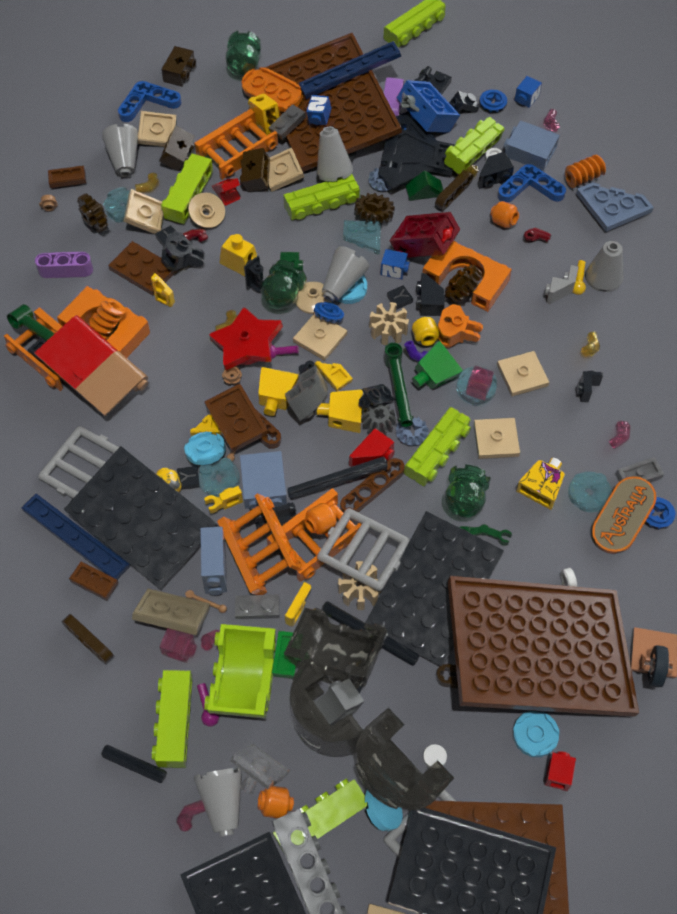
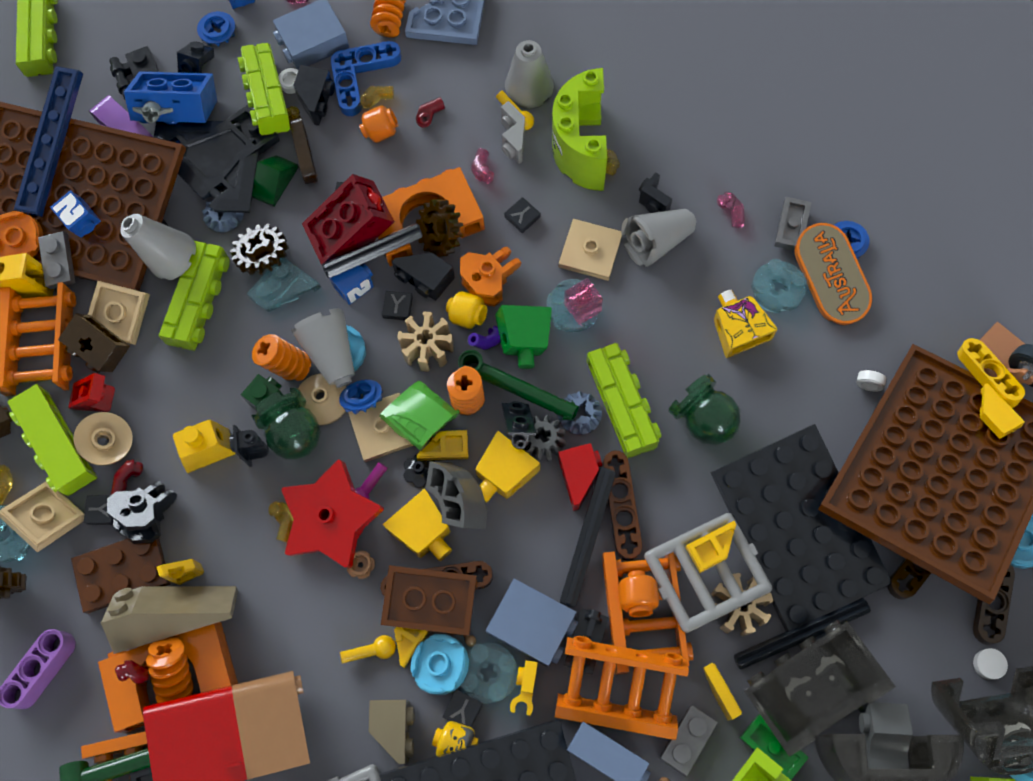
camera: 50 degrees left, 10 degrees up
(93, 300) = (133, 671): none -> dark red arm
(134, 295) = (161, 612): none -> dark tan slope
(153, 445) = (390, 727): none -> dark tan slope
(194, 417) = (383, 648): none -> yellow bar
(317, 257) = (281, 358): none -> orange piece
(341, 346) = (418, 414): none -> bright green slope
(373, 359) = (466, 390): none -> orange piece
(379, 539) = (712, 547): none -> yellow tile
(419, 258) = (372, 250): none -> black axle
(460, 736) = (998, 624): none -> dark brown beam
(485, 530) = (753, 424): dark green piece -> none
(496, 438) = (651, 332): tan plate -> none
(513, 324) = (522, 215): none -> black tile
(522, 284) = (479, 167): none -> clear pink arm
(523, 201) = (375, 94): none -> clear yellow arm
(564, 399) = (656, 234): none -> light grey cone
(592, 301) = (575, 106): none -> lime cylinder
(603, 658) = (998, 413): none -> yellow tile
(624, 647) = (977, 357): none -> yellow beam

